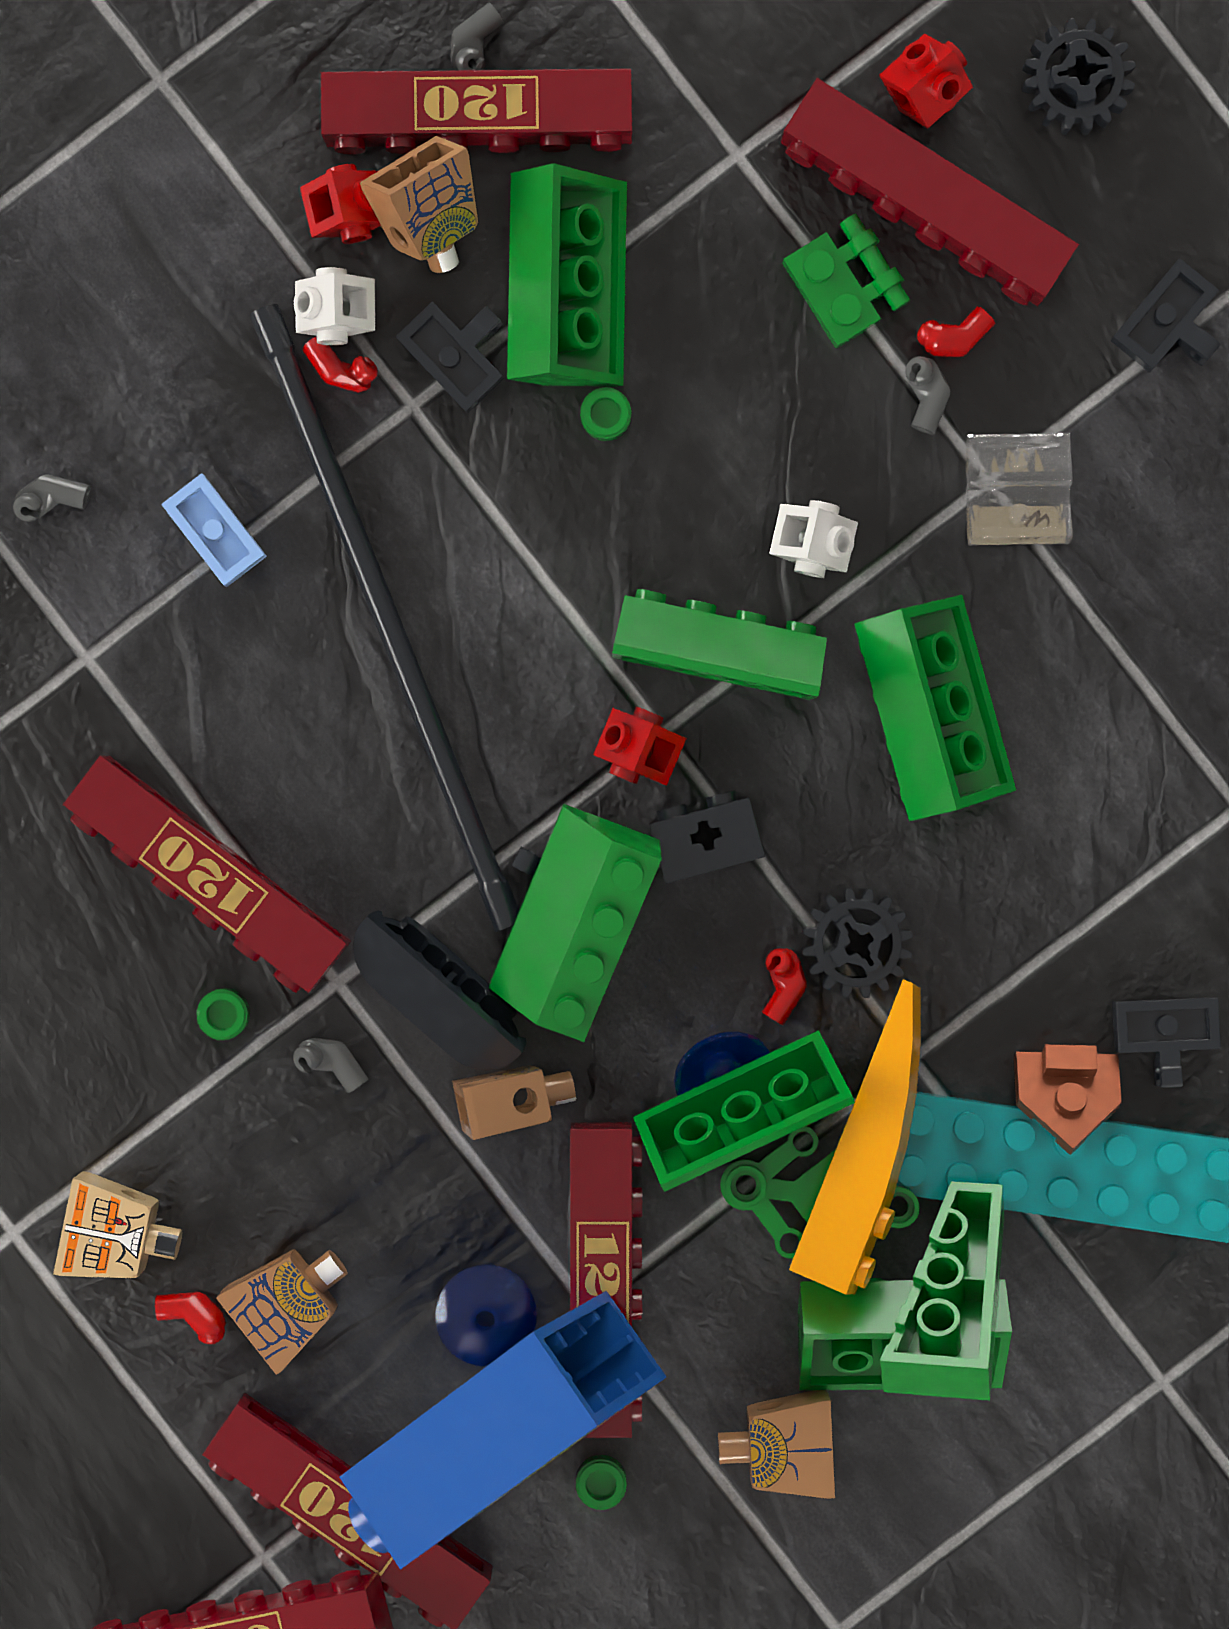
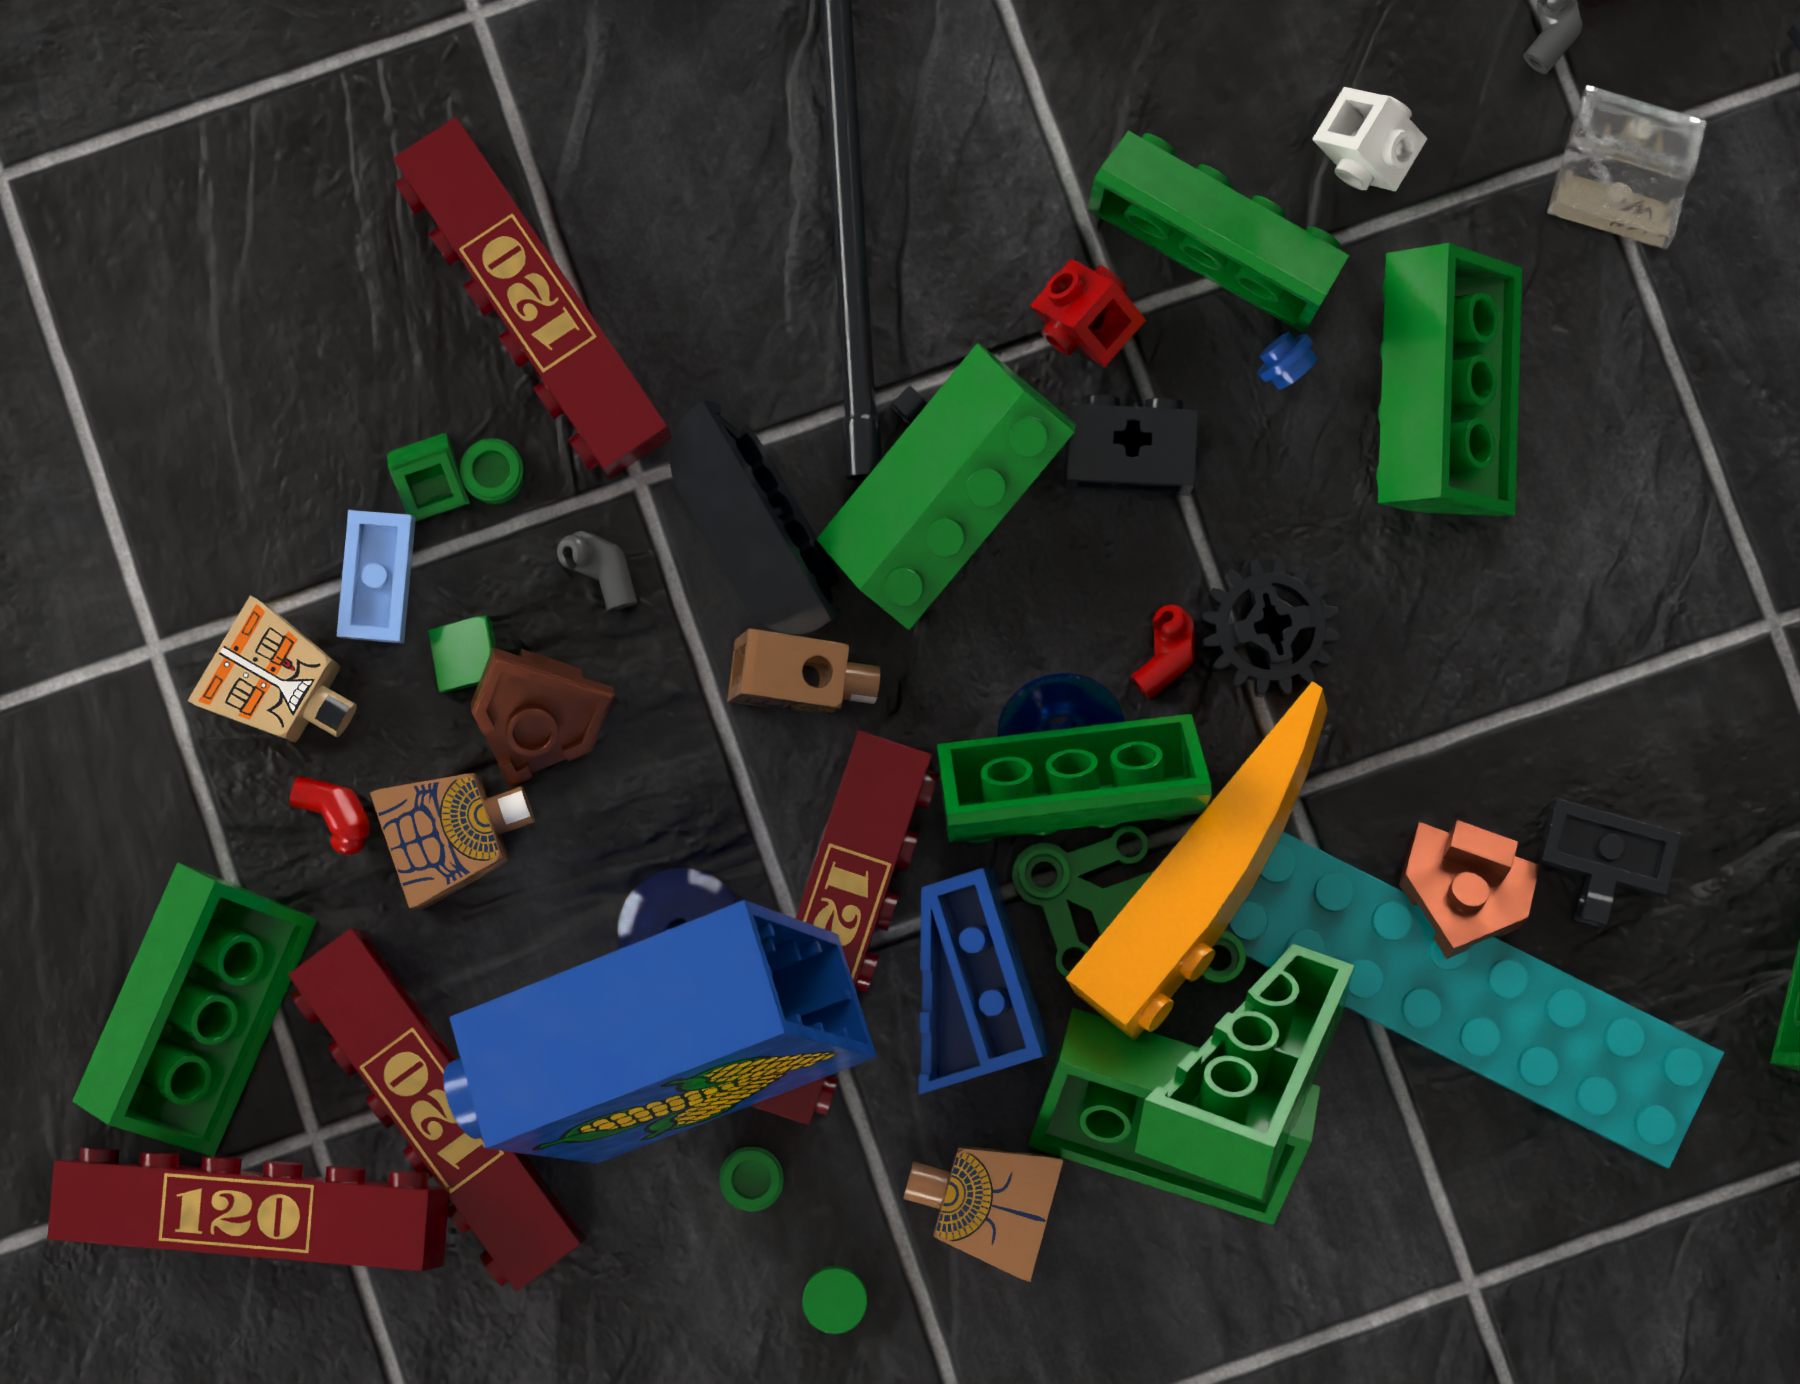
camera: 20 degrees right, 5 degrees down
(140, 1500) = (194, 1011): none -> green slope
(162, 1126) = (376, 576): none -> light blue plate
(174, 1034) = (427, 477): none -> green slope
(251, 1162) = (461, 652): none -> green slope
(321, 1189) = (537, 712): none -> copper plate
(692, 1550) = (834, 1299): none -> green tile
(722, 1290) = (974, 984): none -> blue wedge
(804, 730) = (1286, 360): none -> blue plate

